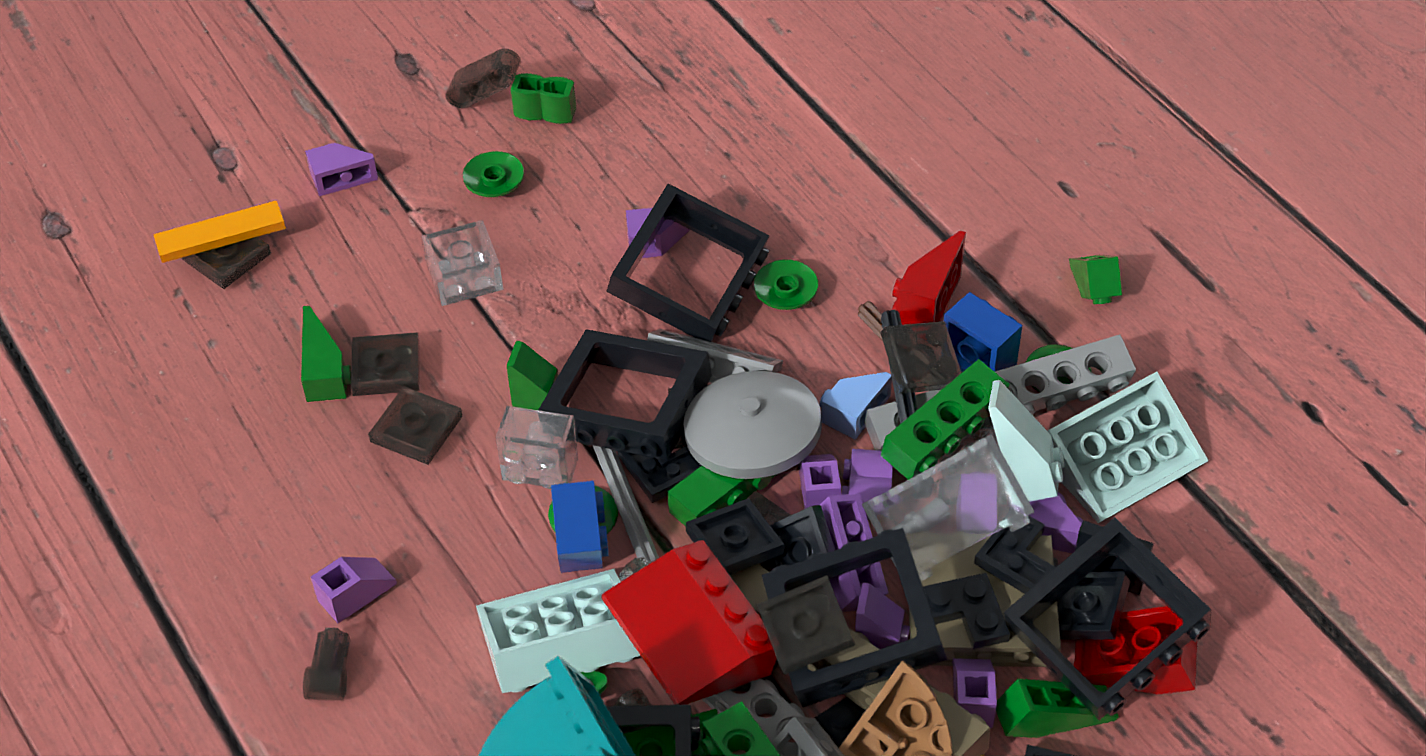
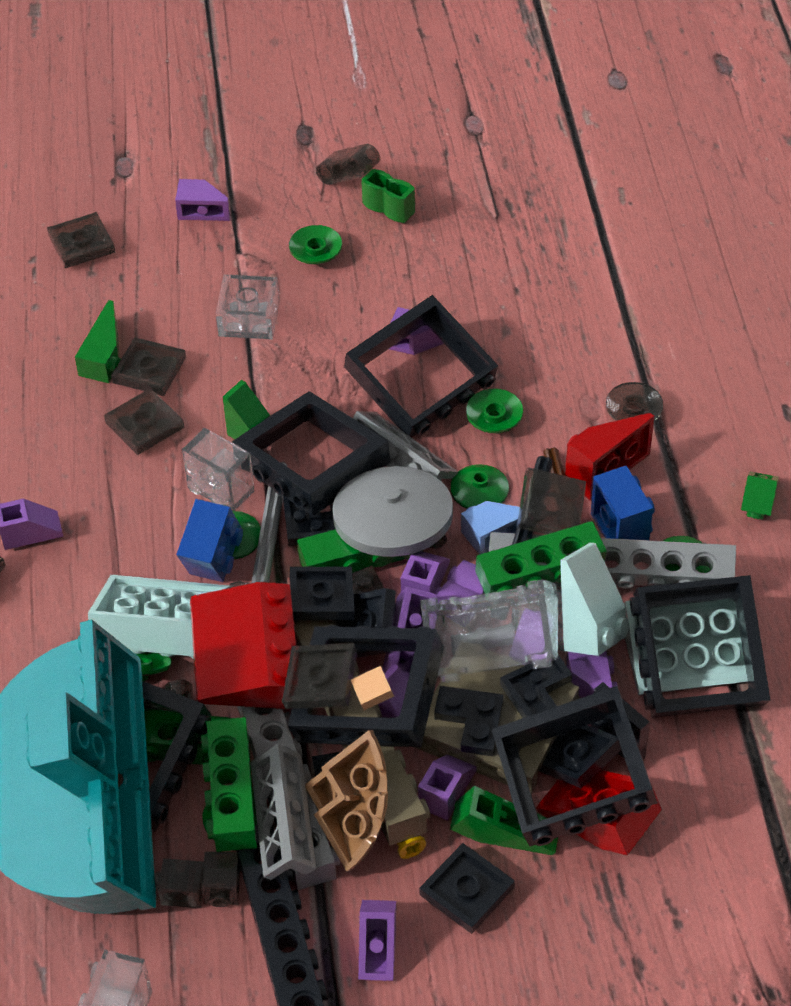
camera: 25 degrees right, 0 degrees up
(219, 231) = (82, 221): light orange tile -> none
(814, 366) = (479, 484): none -> green dish
(872, 615) = (372, 688): none -> light nougat tile
(920, 229) = (633, 400): none -> clear smoke dish
(1186, 422) = (734, 588): none -> black piece

